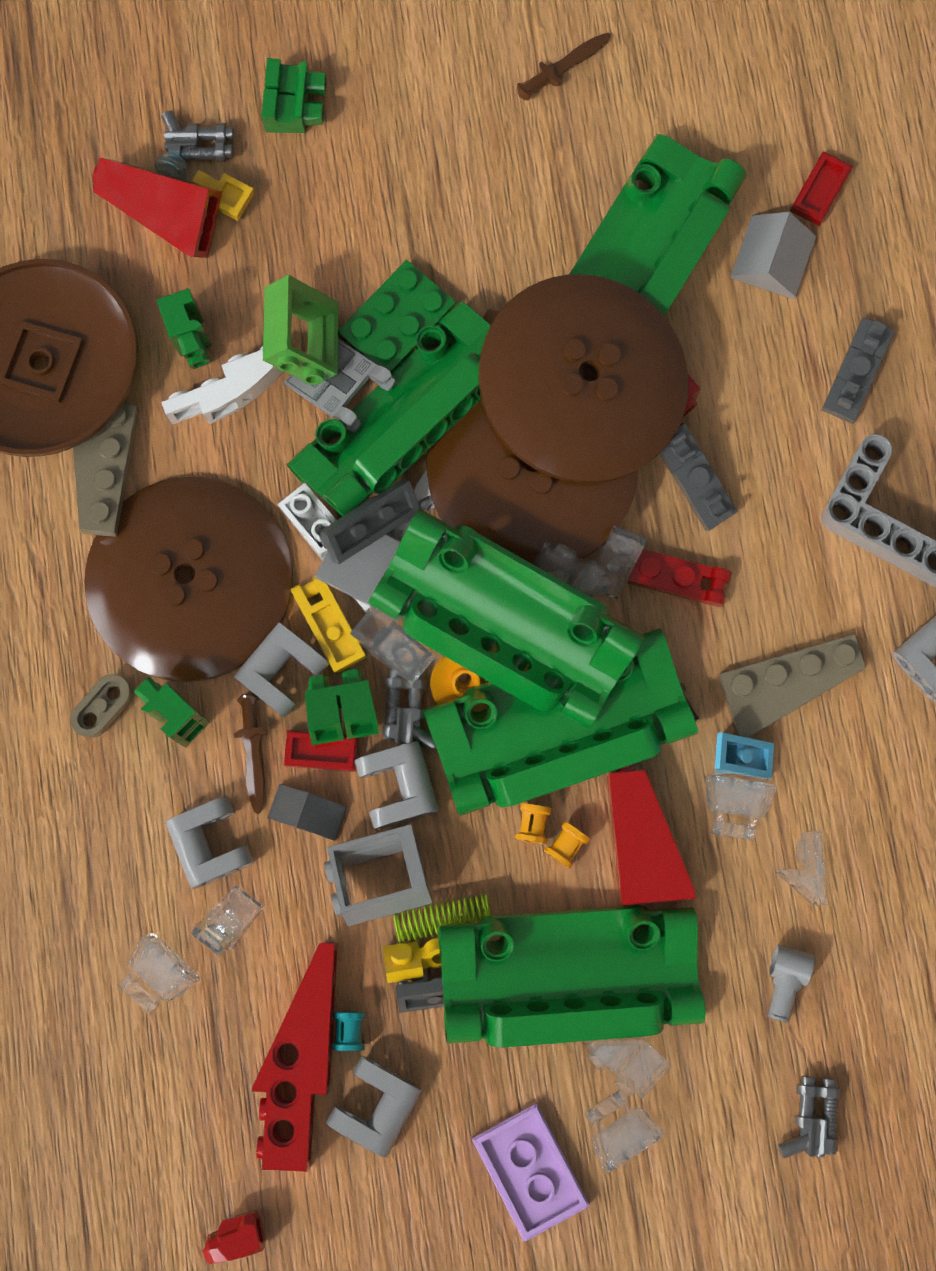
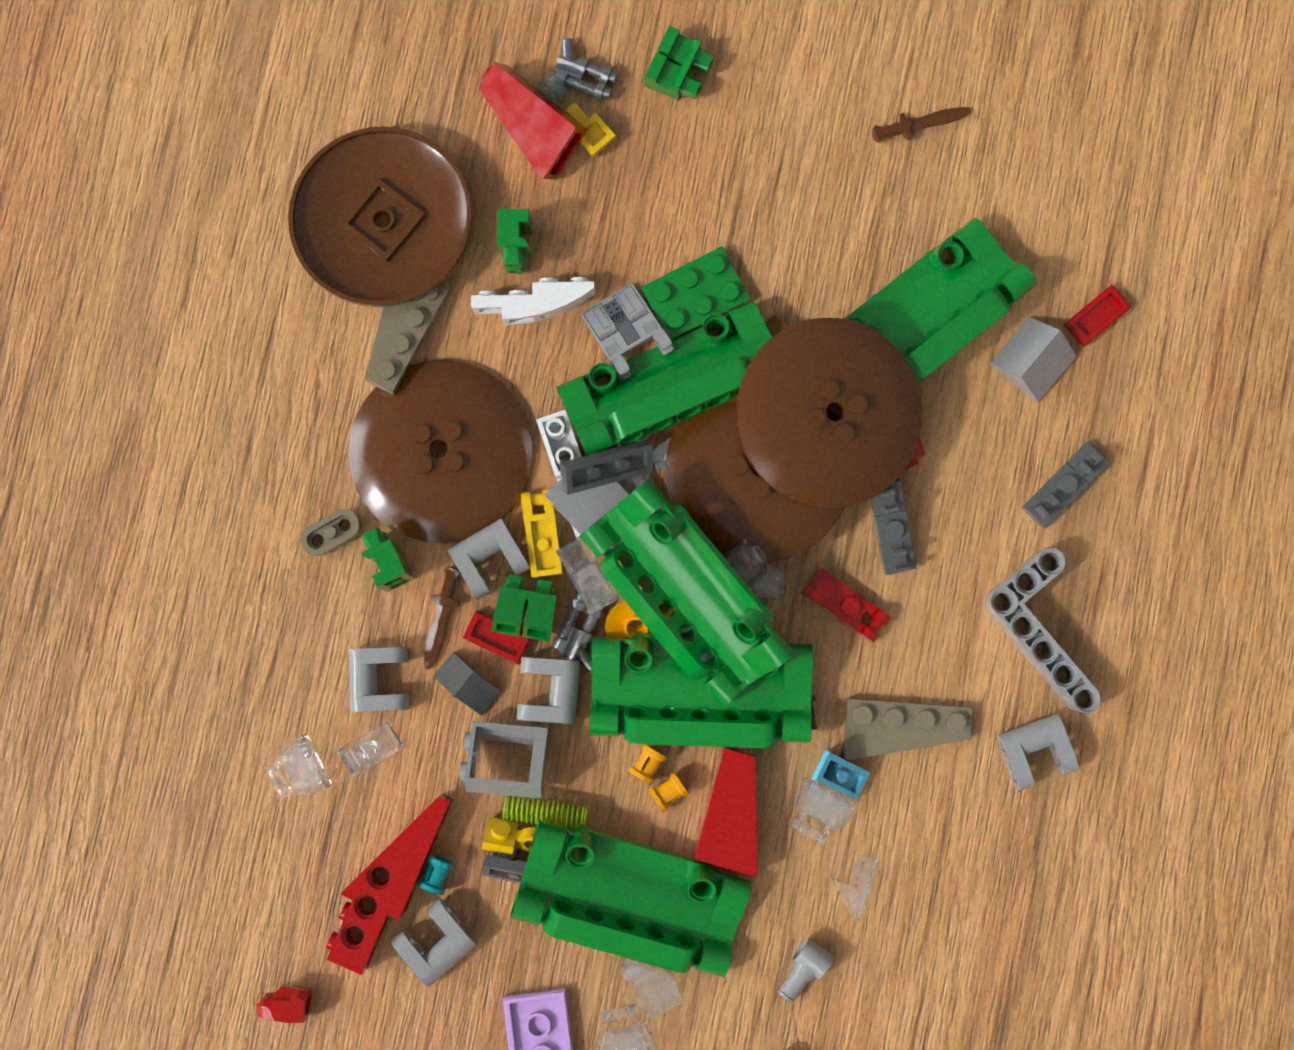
camera: 15 degrees right, 5 degrees up
(294, 297) = (632, 267): bright green window -> none
(619, 557) = (802, 571): clear slope -> none

